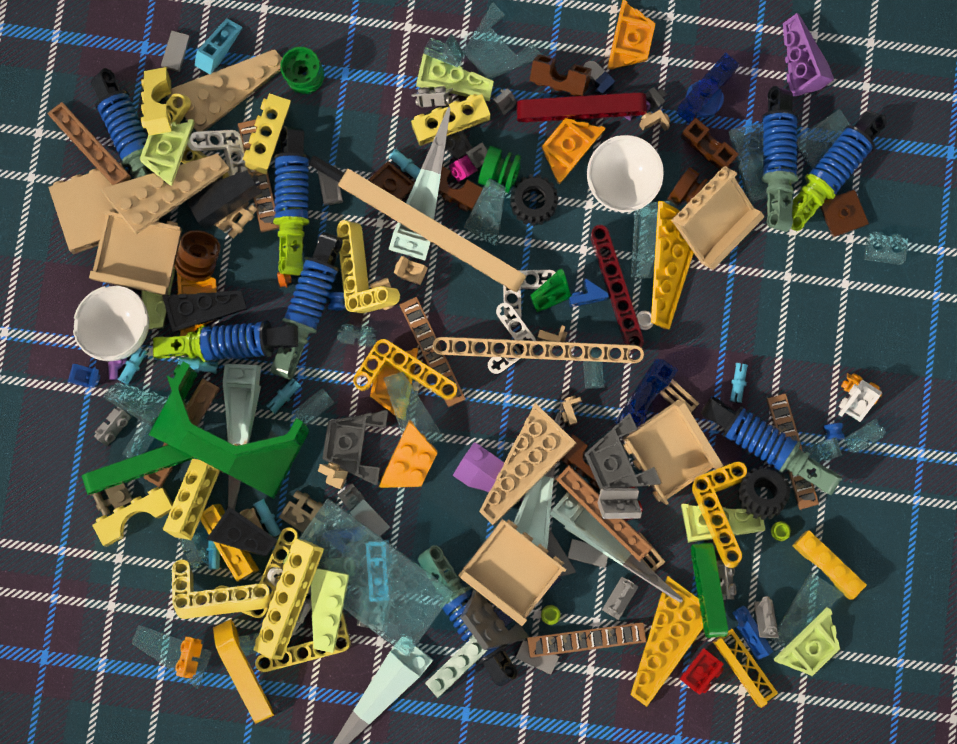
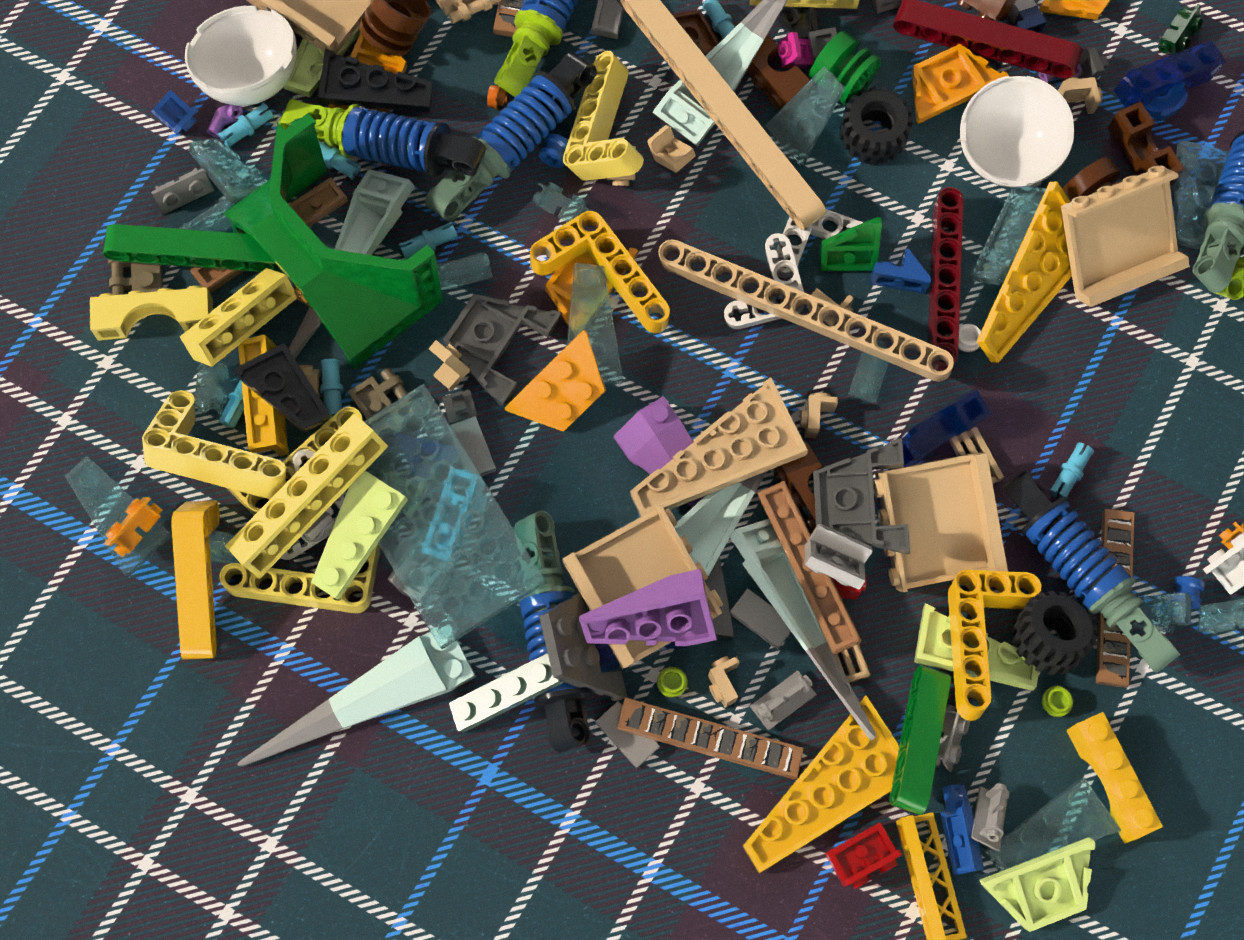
camera: 20 degrees right, 10 degrees down
(425, 337) = (652, 233): tile -> none
(534, 582) = (666, 611): none -> medium lavender wedge
(581, 607) = (721, 686): none -> tan bracket
(706, 40) = (1187, 24): none -> dark green hinge

